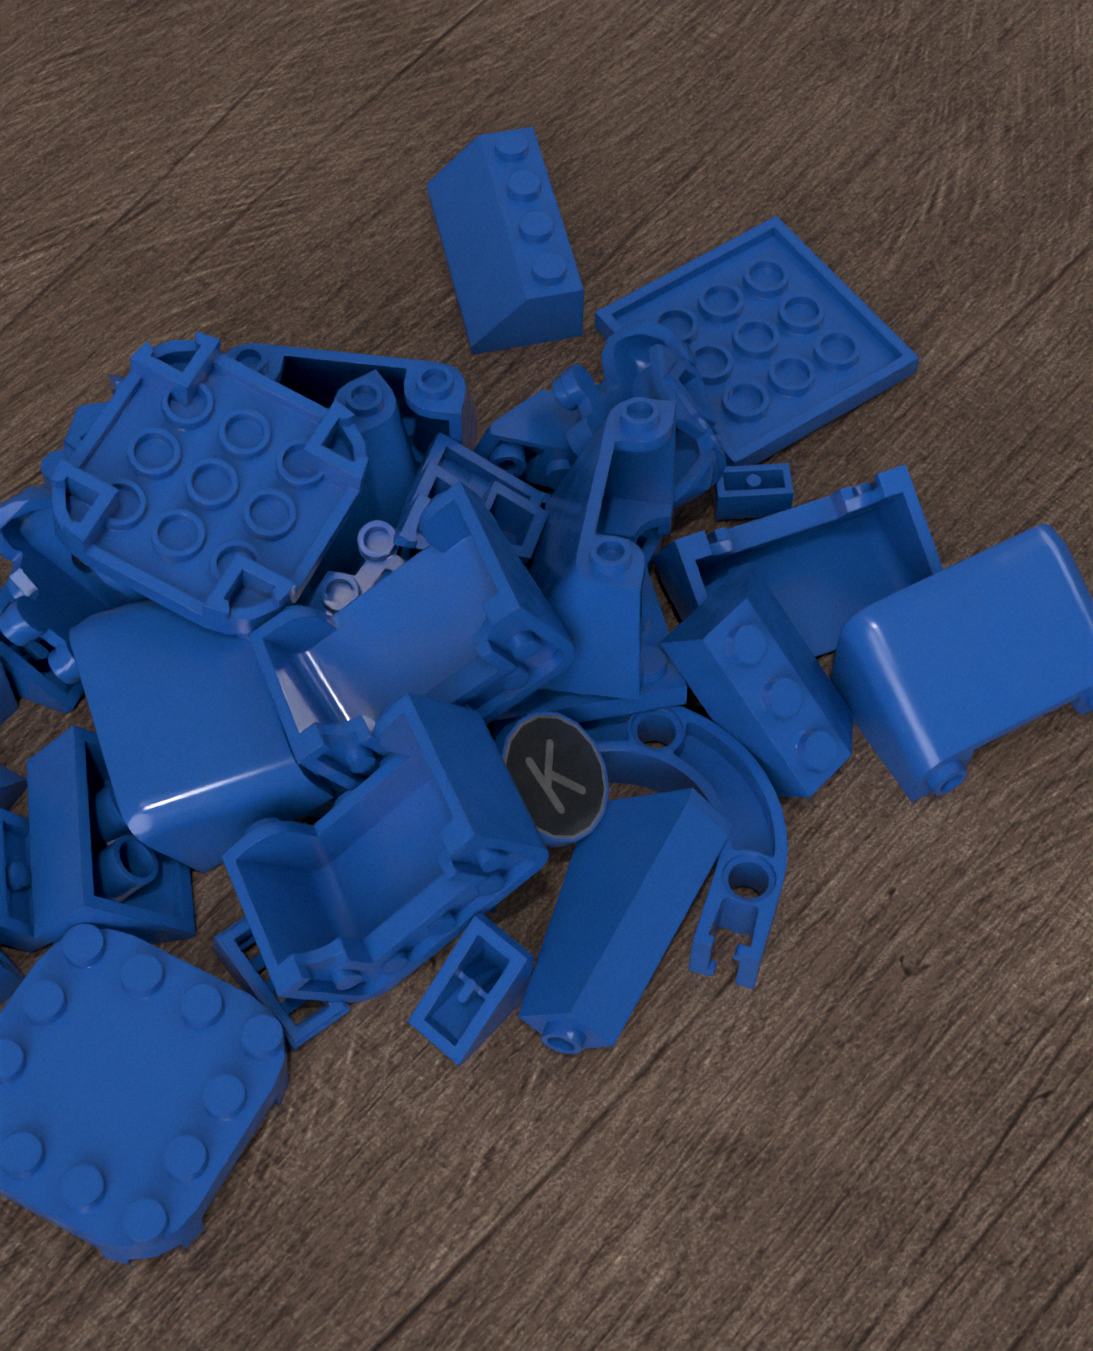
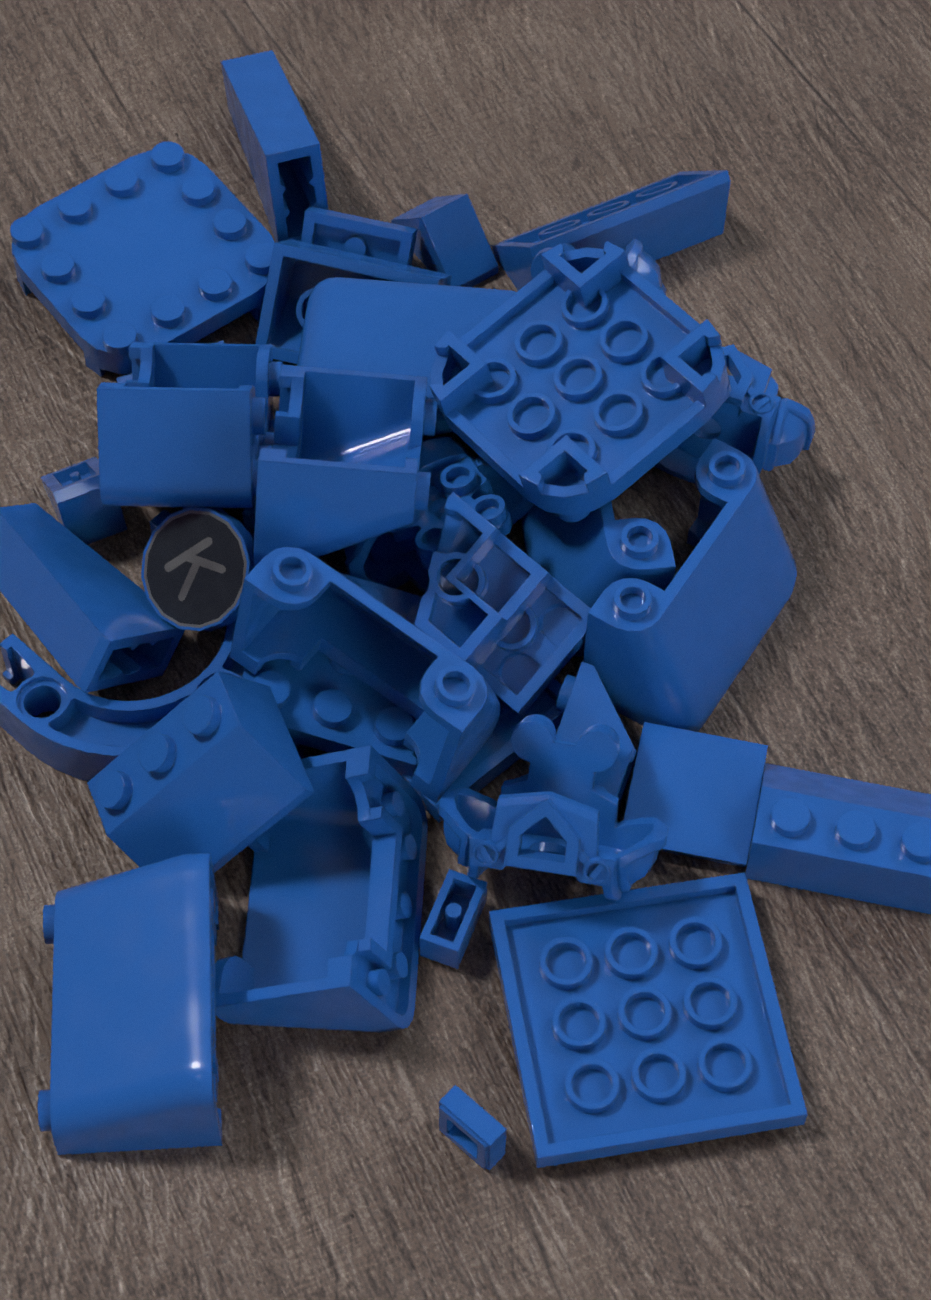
camera: 115 degrees right, 0 degrees up
(519, 360) = (700, 789): none -> blue slope
(922, 409) = (472, 1128): none -> blue tile

